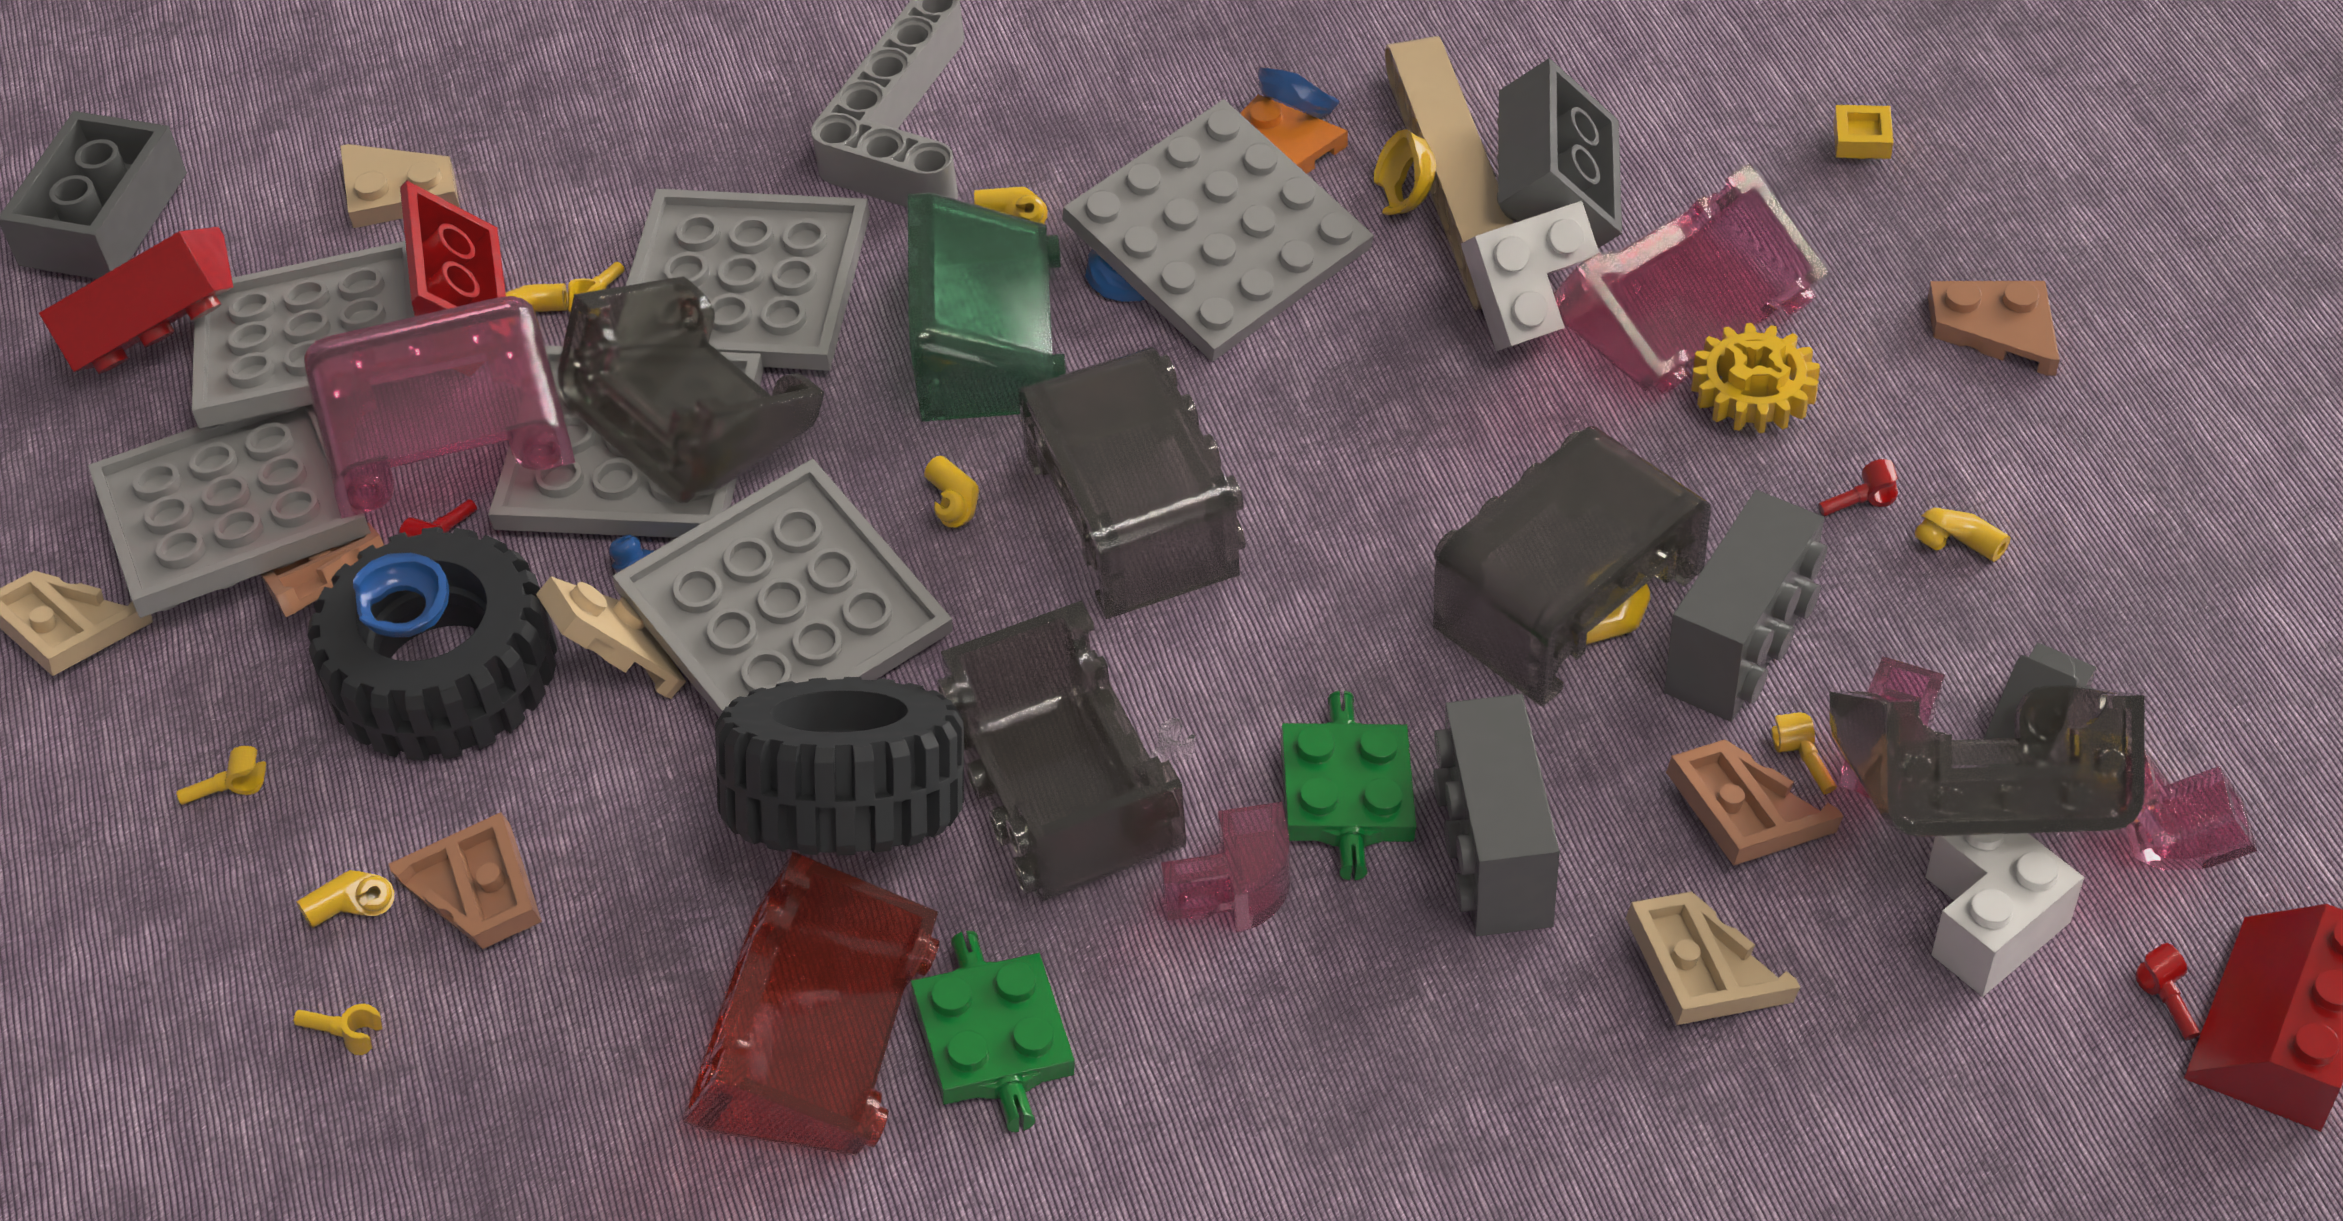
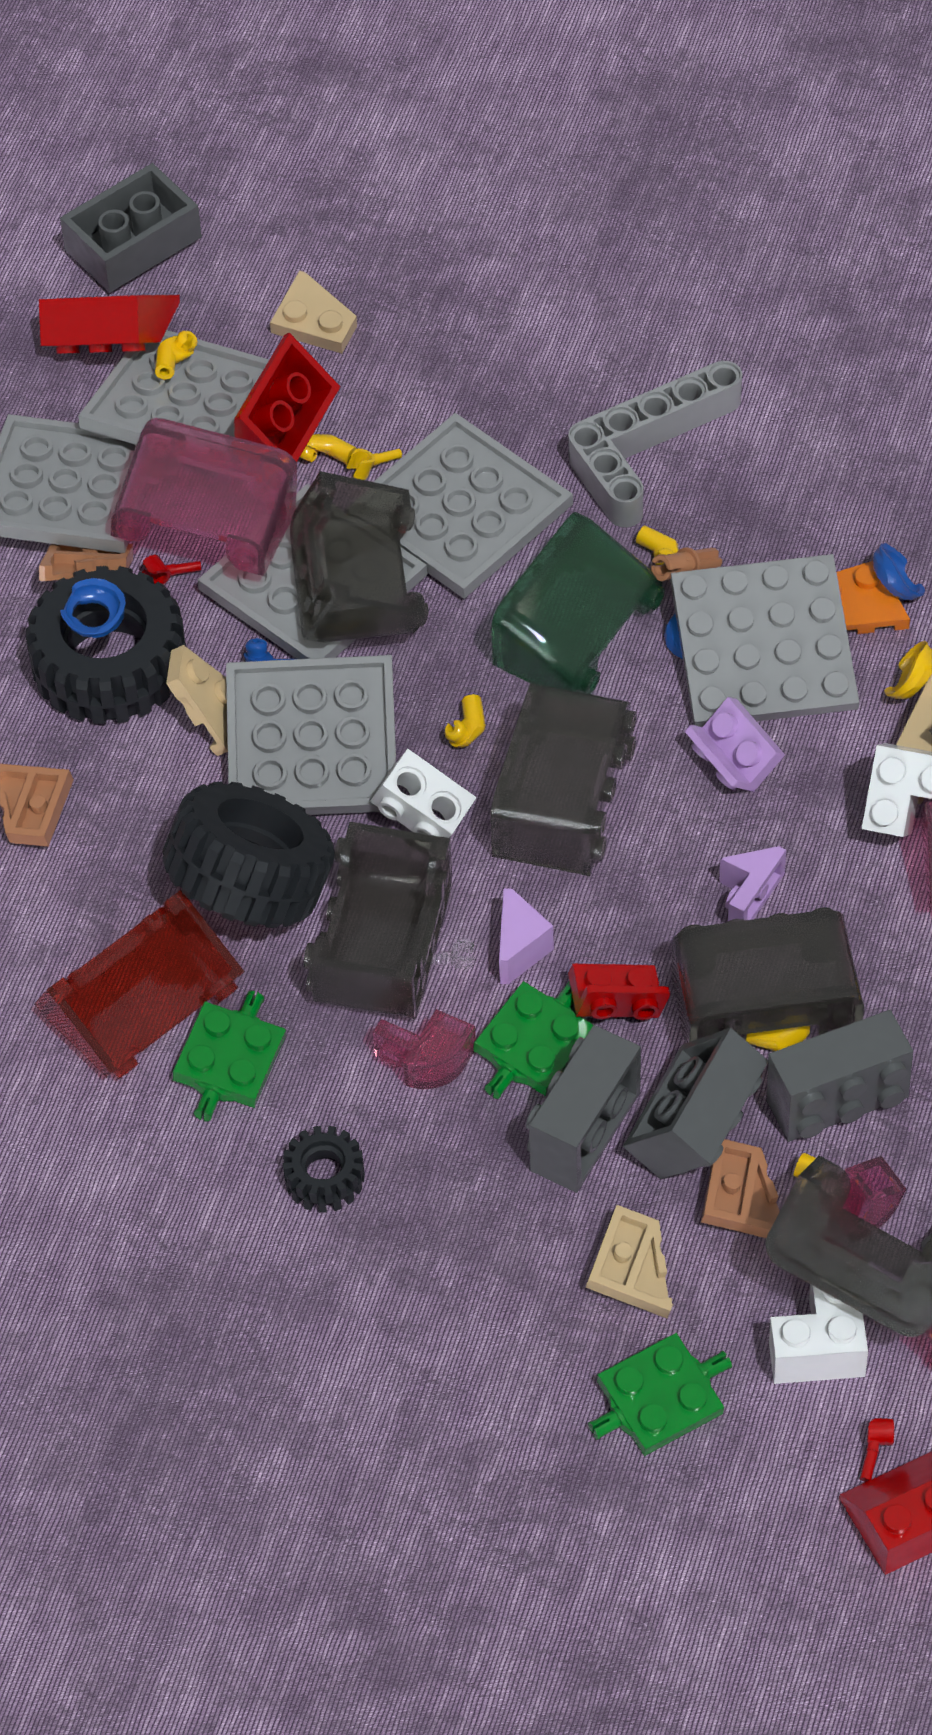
camera: 35 degrees right, 5 degrees up
(259, 287) = (172, 352): none -> yellow arm
(980, 588) = (428, 791): none -> white brick
(1057, 194) = (685, 560): none -> nougat axle
(1228, 675) = (524, 937): none -> lavender slope
(1236, 1055) = (328, 1190): none -> black tyre
(1288, 342) = (736, 746): none -> lavender bracket
(1400, 670) = (617, 991): none -> red bracket
(1434, 468) = (752, 880): none -> lavender slope
(1623, 730) = (696, 1104): none -> dark grey brick
(1880, 1094) = (660, 1394): none -> green plate

